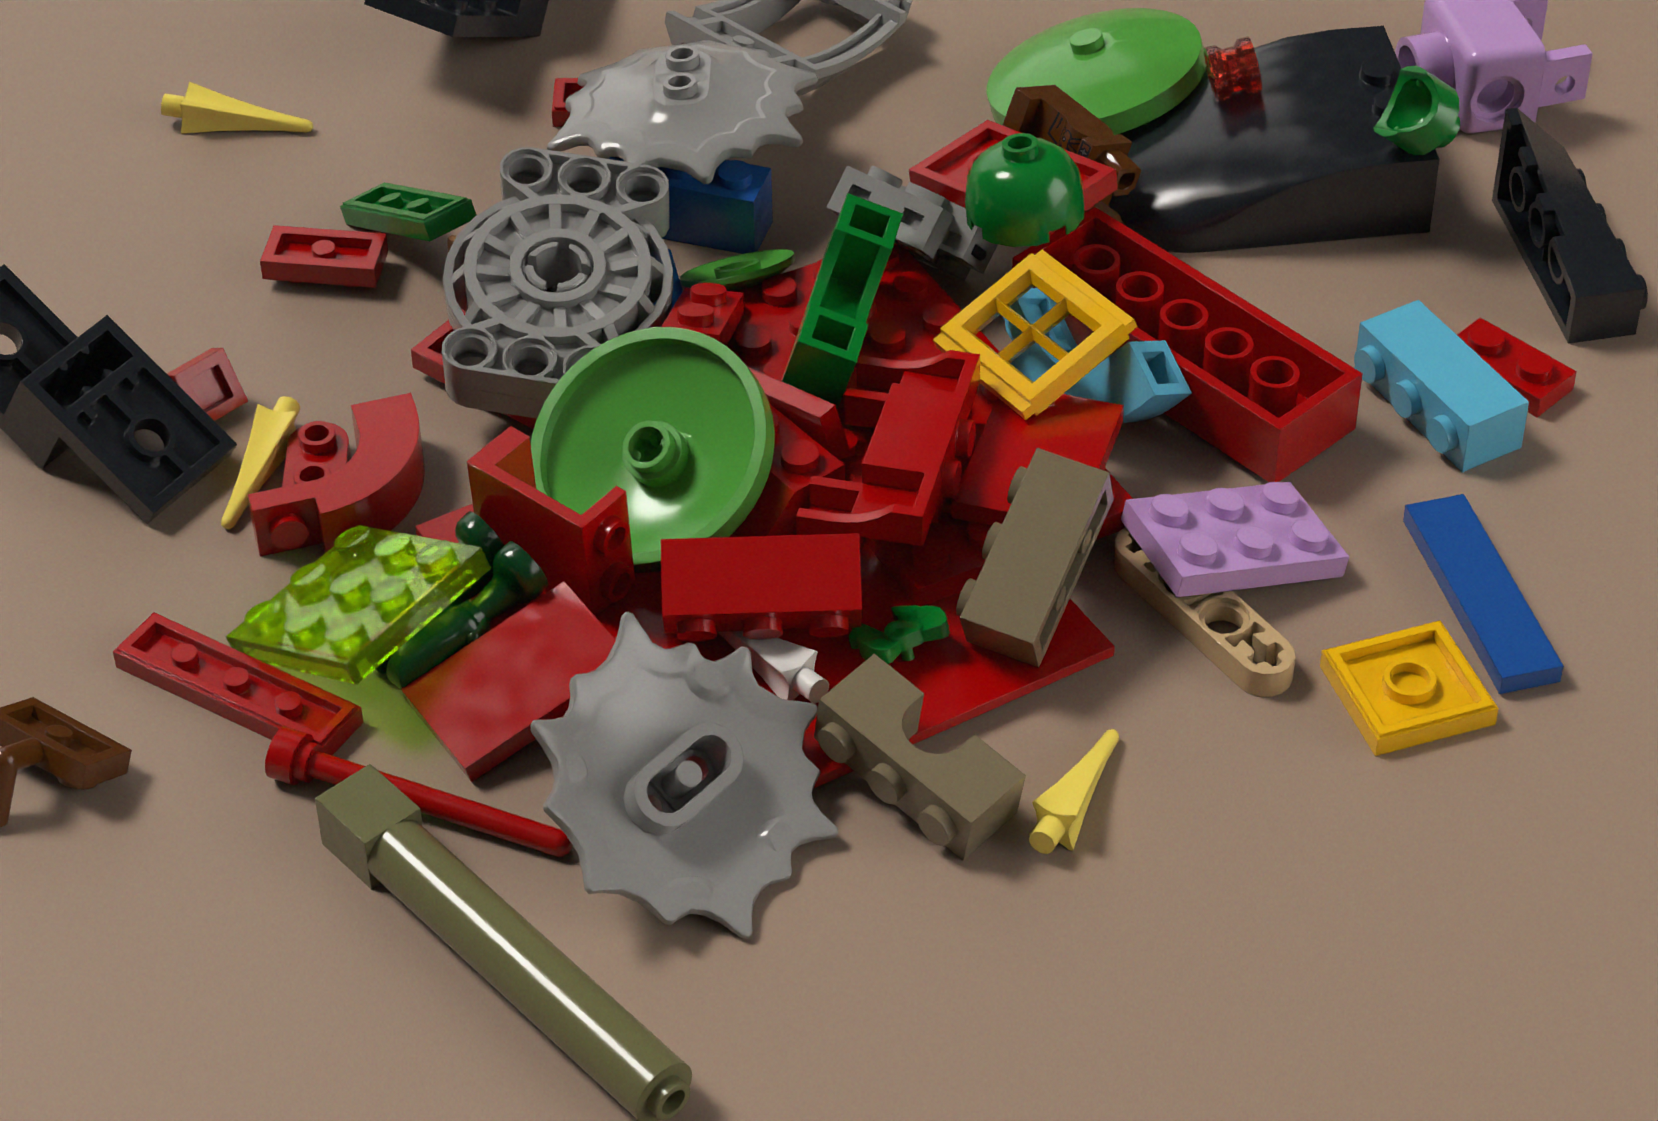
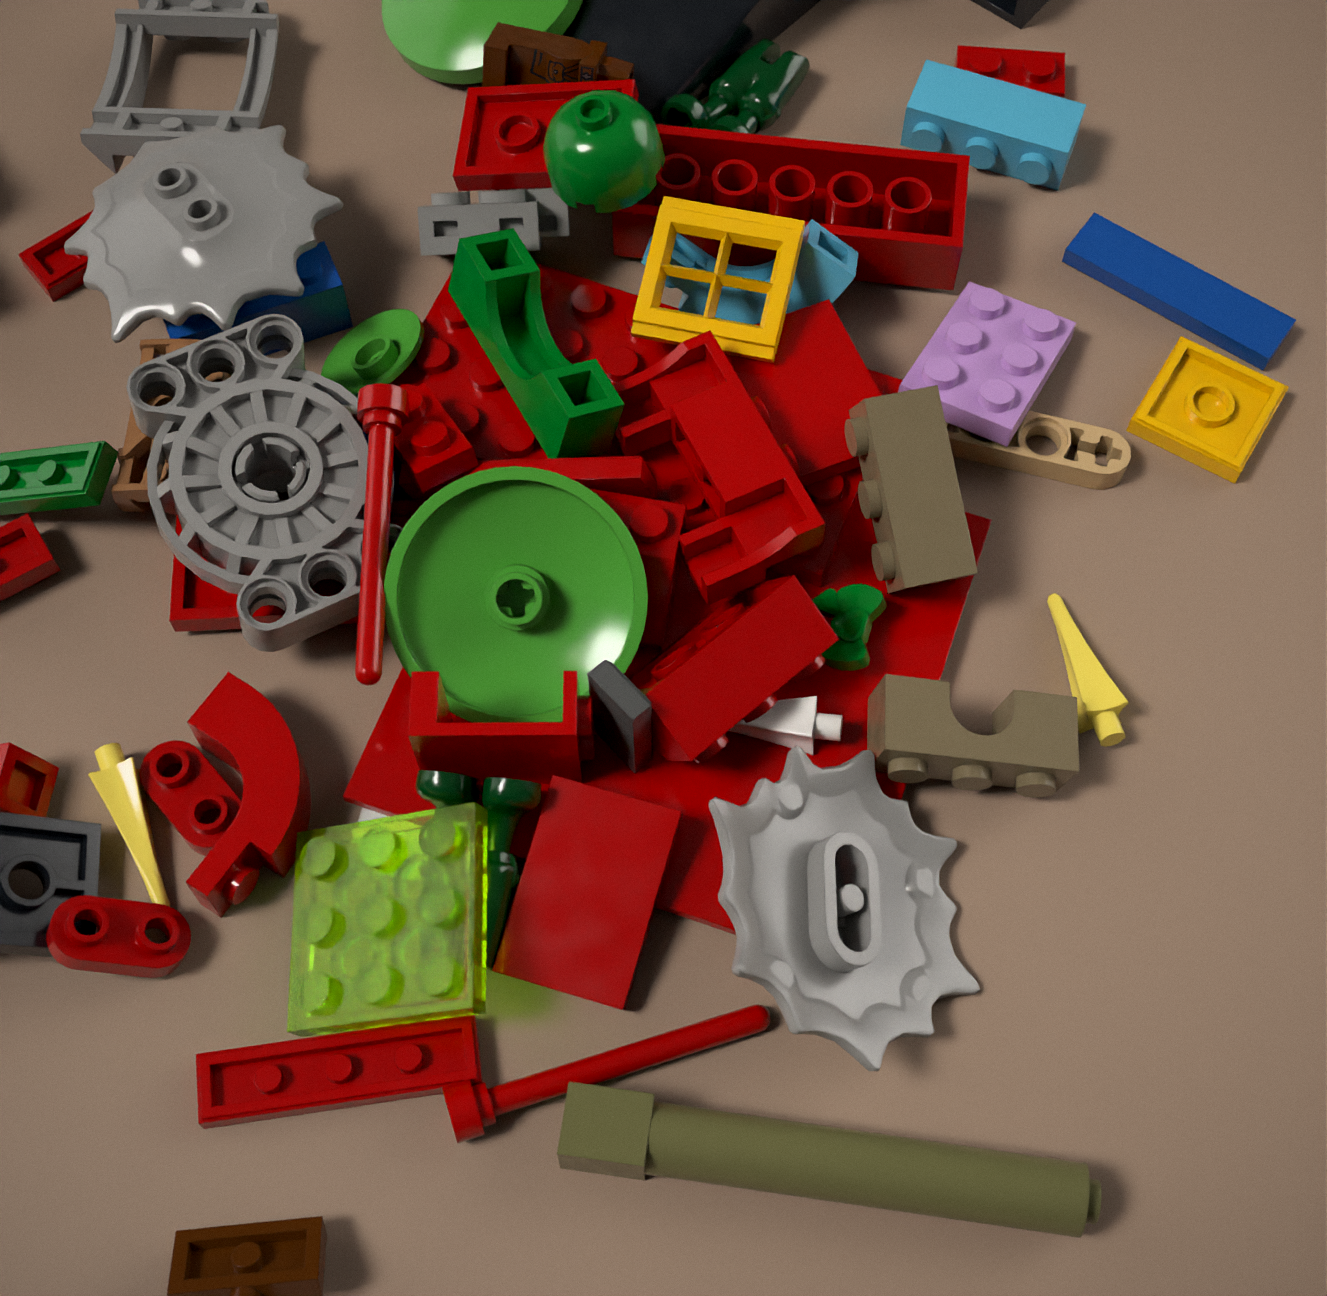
camera: 40 degrees left, 20 degrees up
(172, 509) = (121, 939): none -> red plate
(647, 564) = (621, 715): none -> dark grey tile
(671, 274) = (382, 412): none -> red piece
(1246, 258) = (752, 88): none -> dark green piece

